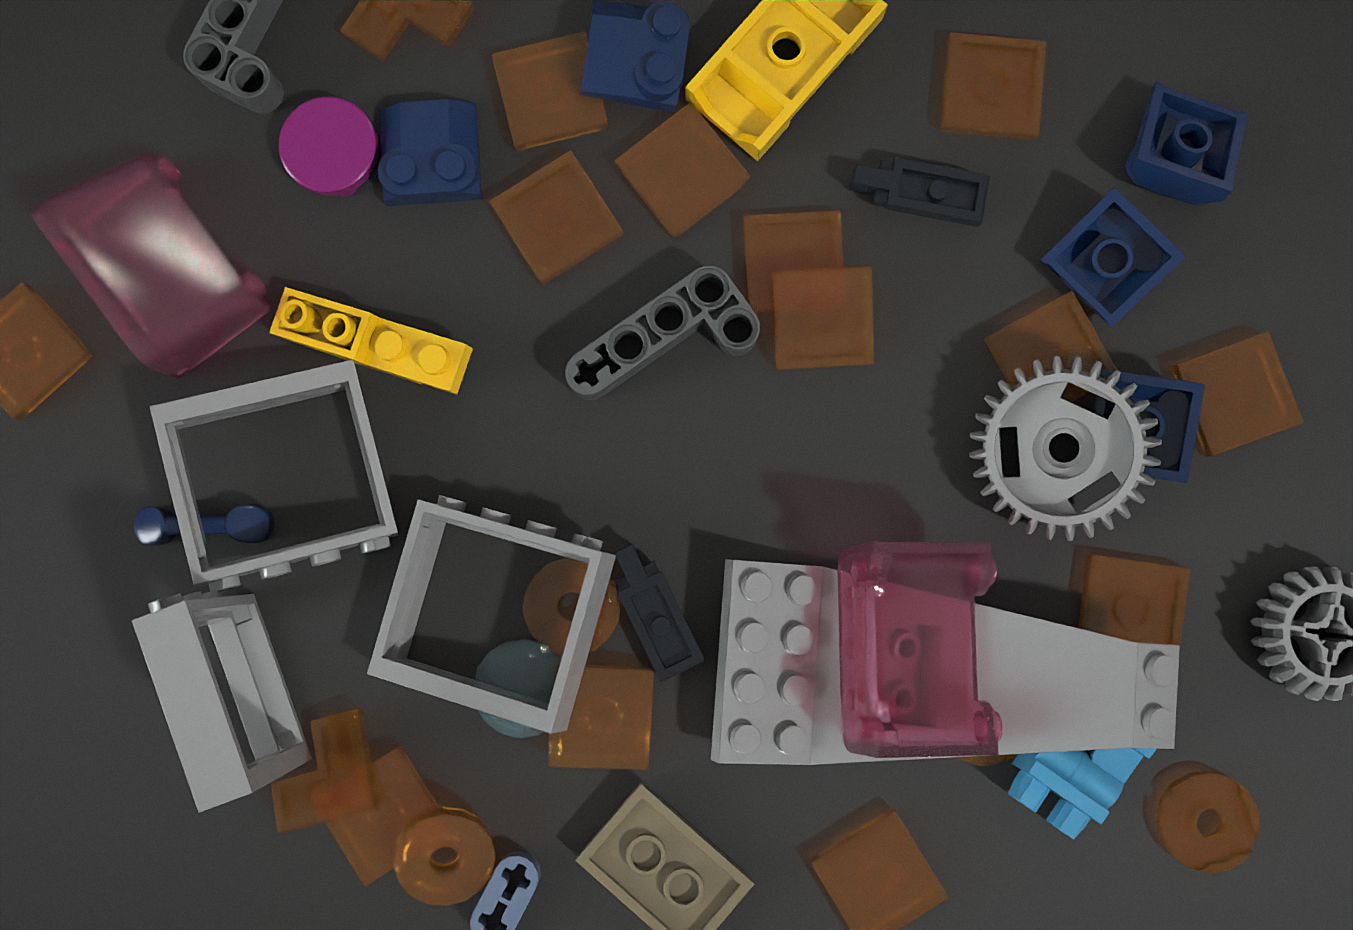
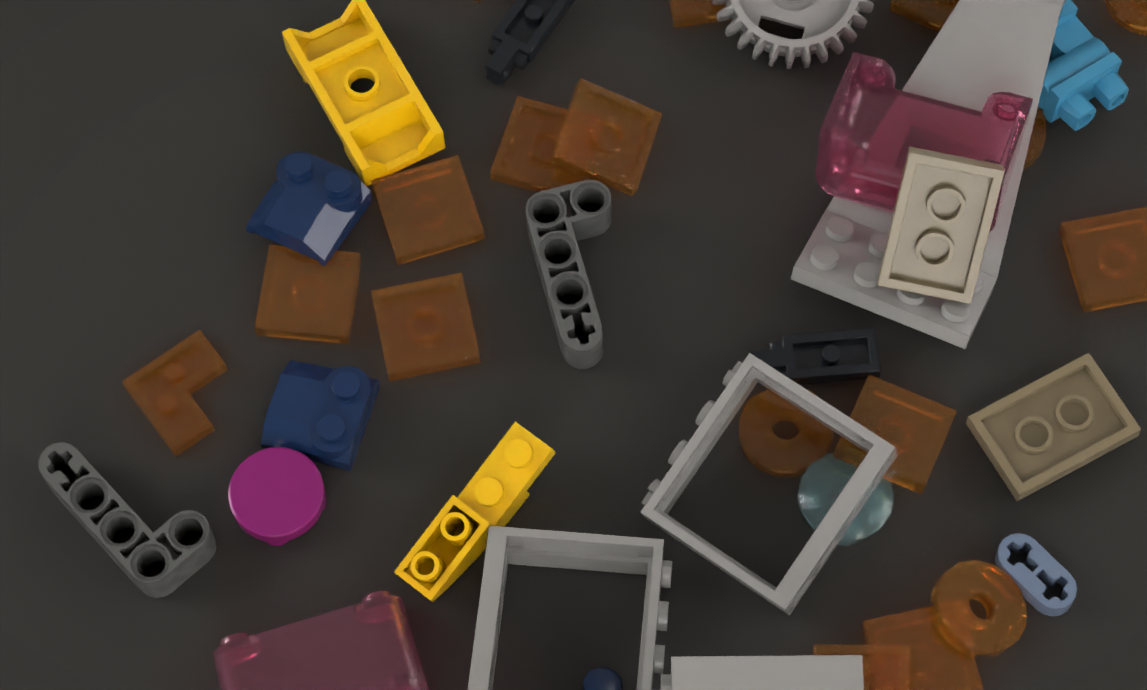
camera: 70 degrees left, 20 degrees down
(811, 703) = (940, 225): none -> plate

